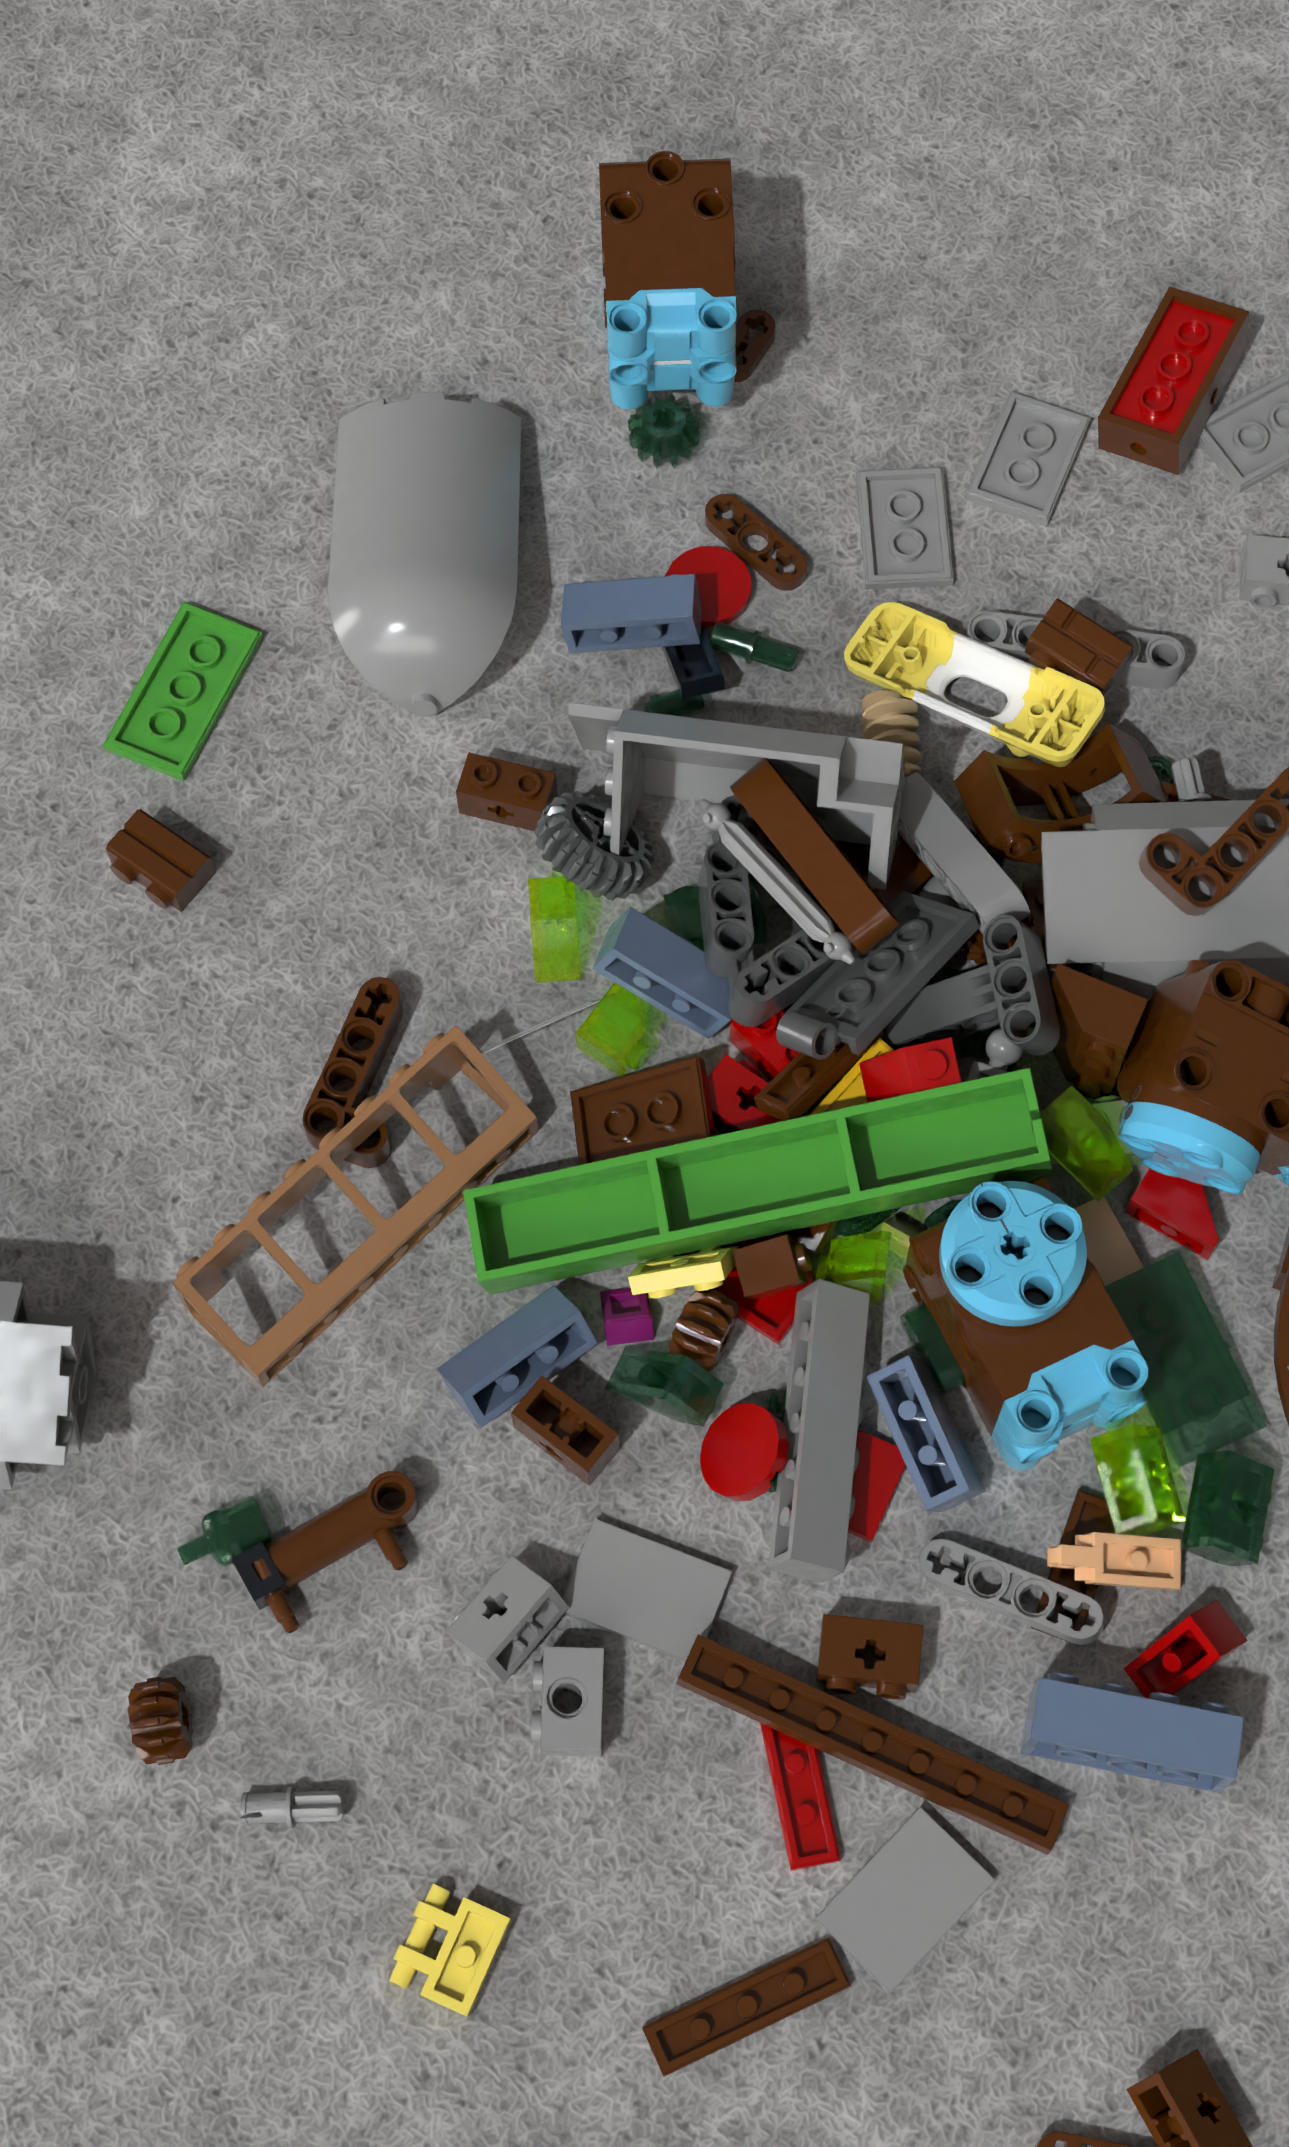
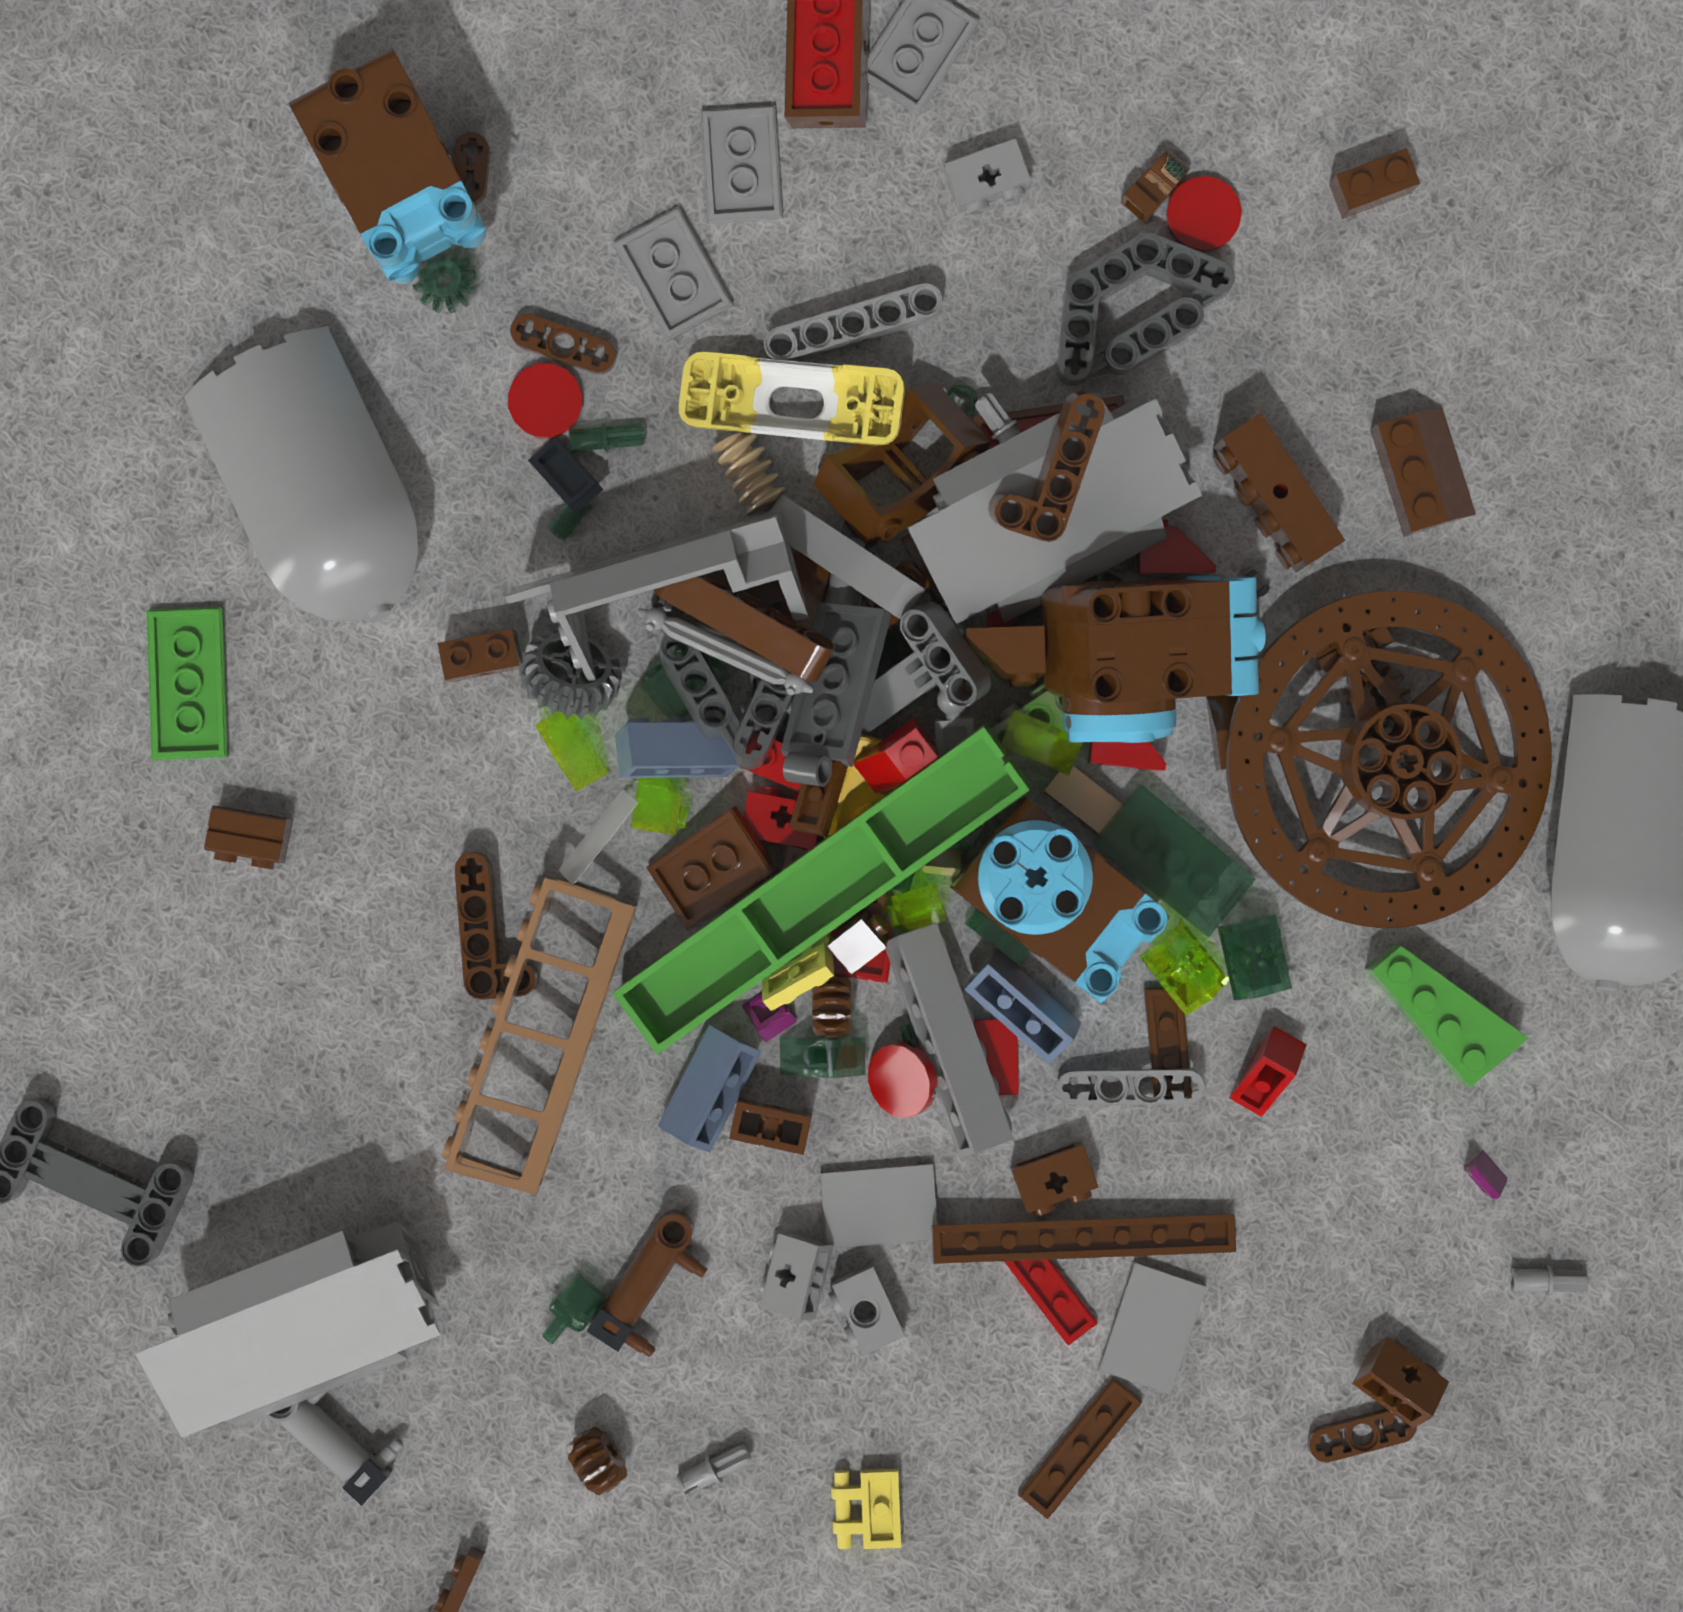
camera: 25 degrees left, 20 degrees up
(631, 613) = (500, 459): sand blue brick -> none
(1077, 647) = (860, 337): reddish brown brick -> none
(1121, 1560) = (1198, 1030): light nougat hinge -> none
(1132, 1733) = (1257, 1152): sand blue brick -> none

